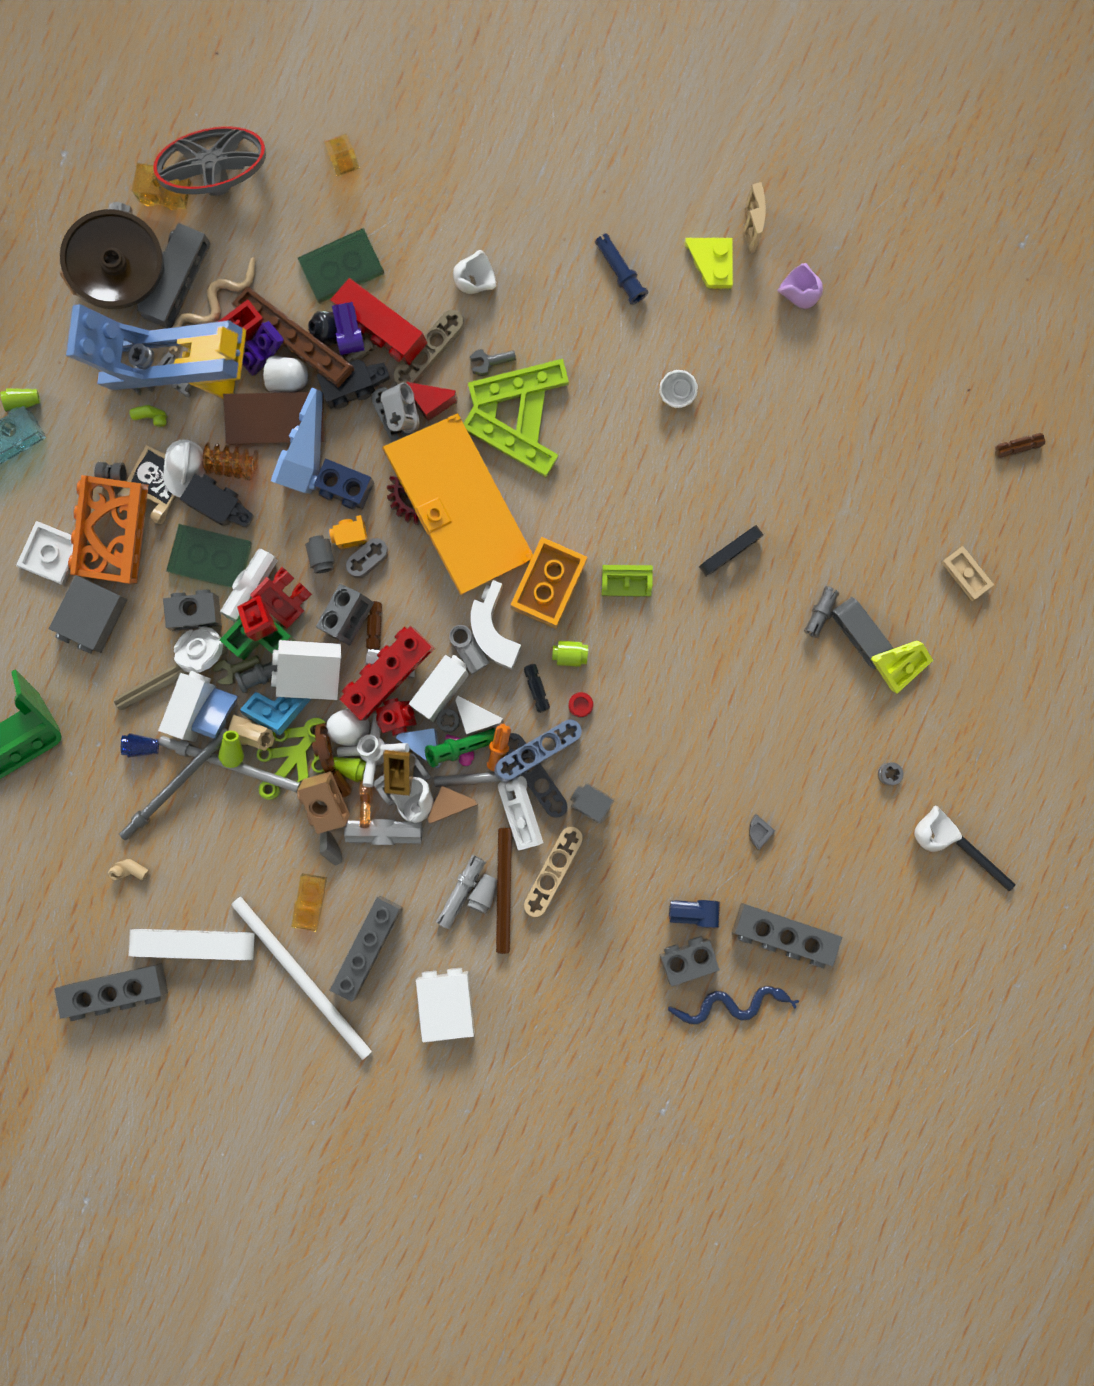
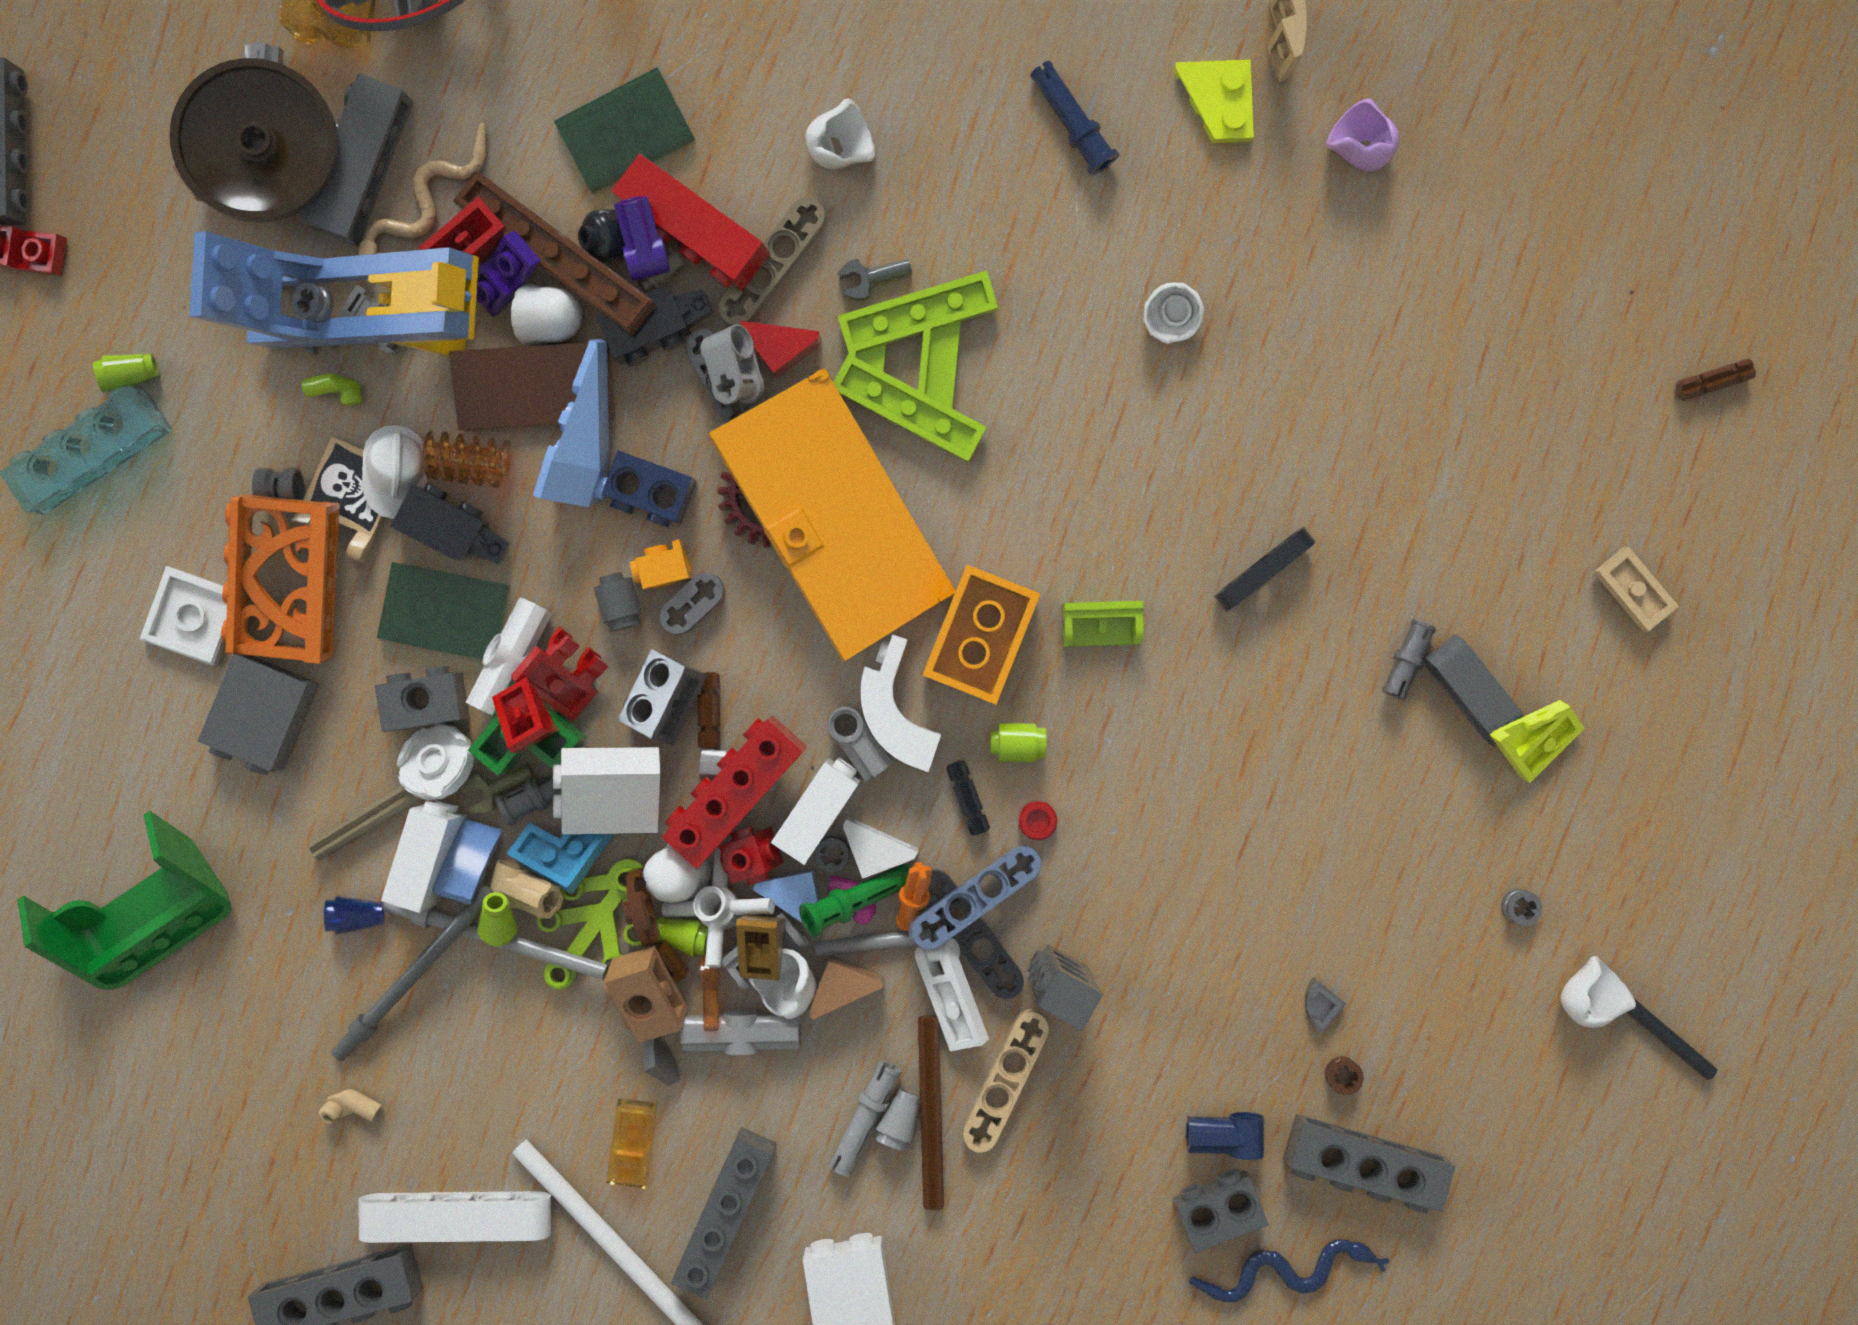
camera: 10 degrees left, 5 degrees up
(768, 884) = (1355, 1082): none -> reddish brown bush

